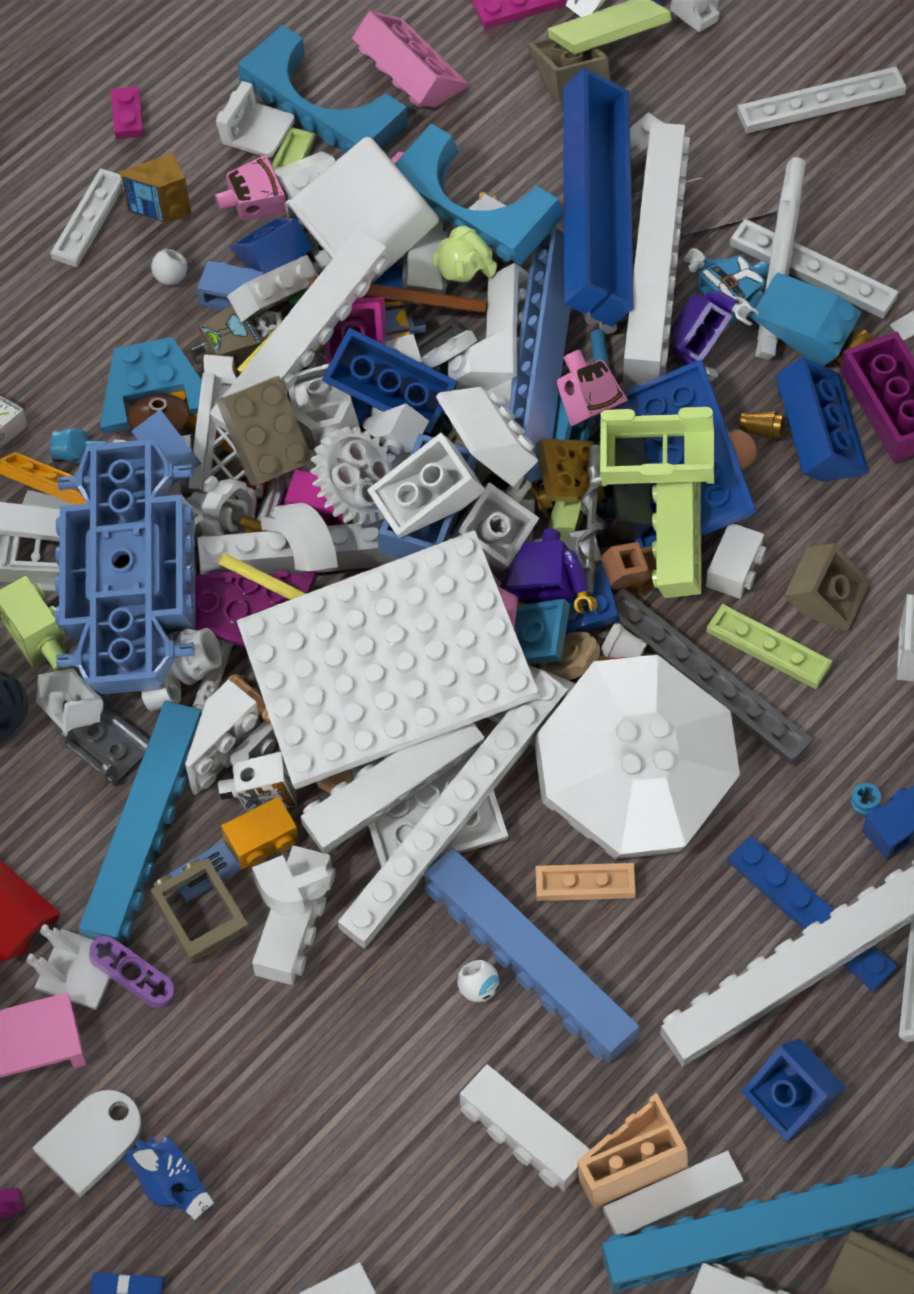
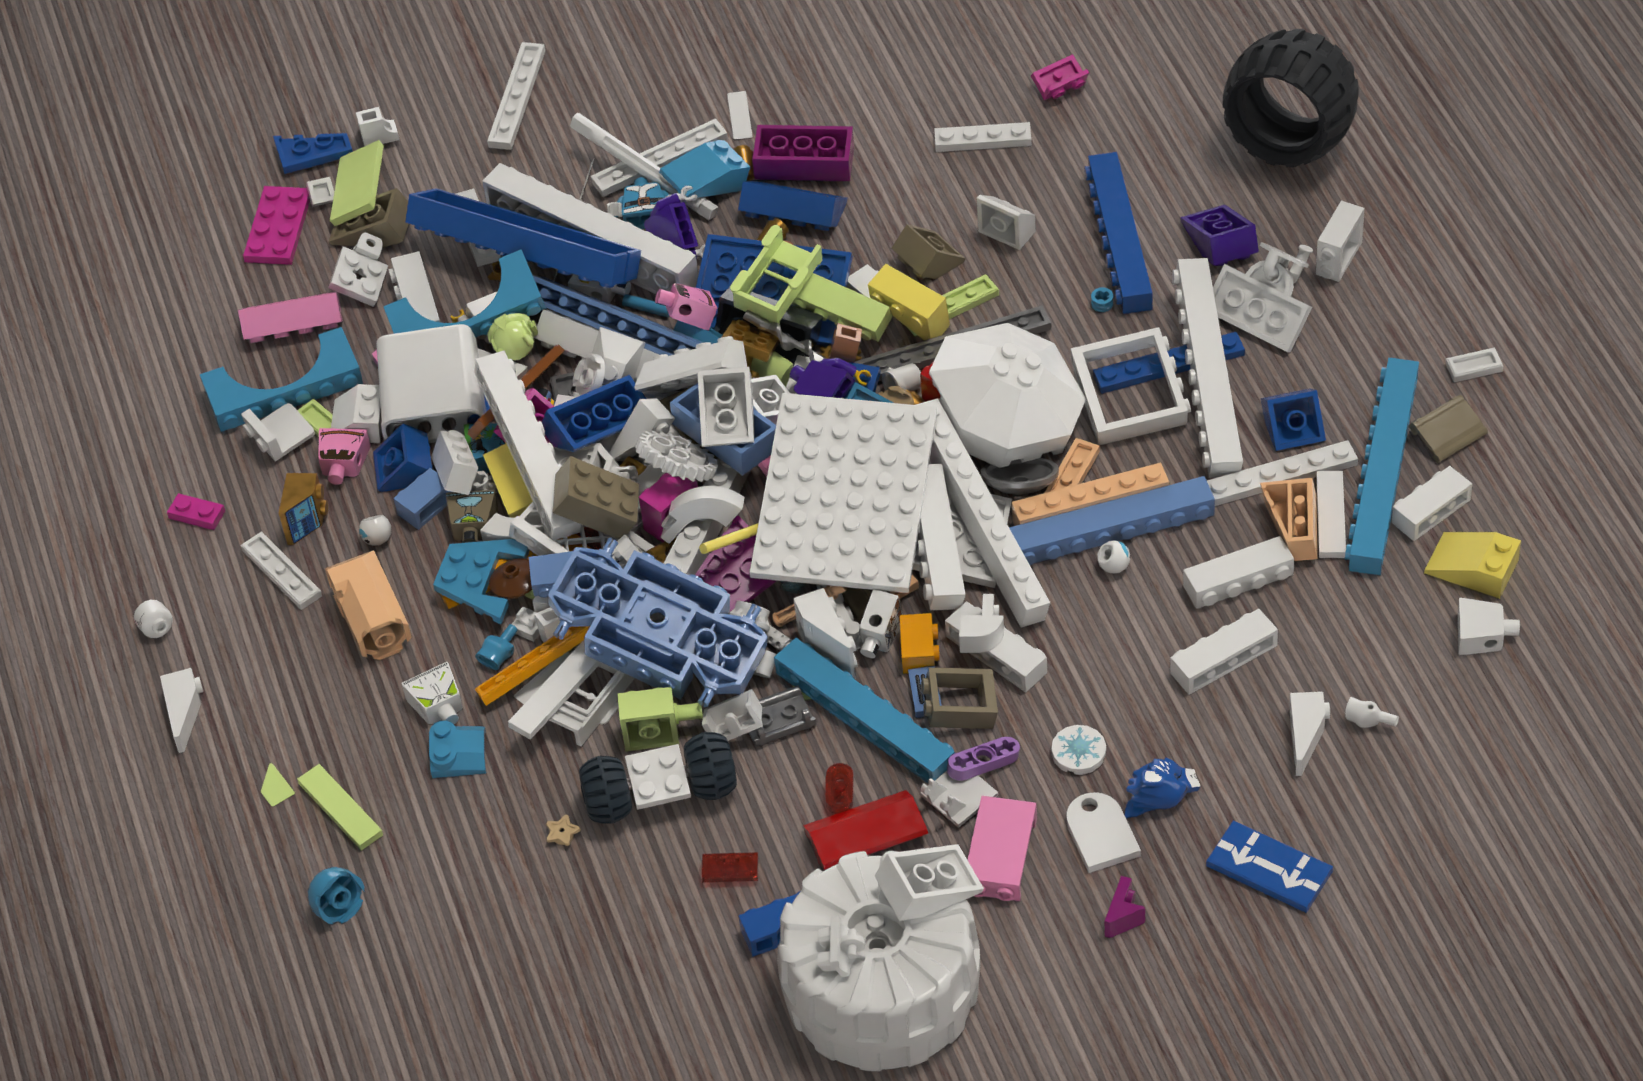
camera: 60 degrees left, 10 degrees down
(31, 845) = (839, 791): none -> clear red plate
(63, 305) = (369, 605): none -> light nougat brick
(194, 1066) = (1078, 749): none -> white tile
(400, 1161) = (1223, 651): none -> white brick
(493, 150) = (413, 284): none -> white brick
(508, 85) = (364, 262): none -> white plate
(538, 831) = (1020, 477): none -> flat silver dish
(551, 917) = (1089, 494): none -> light nougat arch
(699, 849) = (1140, 424): none -> white window
(707, 1111) = (1300, 466): none -> white plate
(720, 600) = (910, 302): none -> light yellow wedge

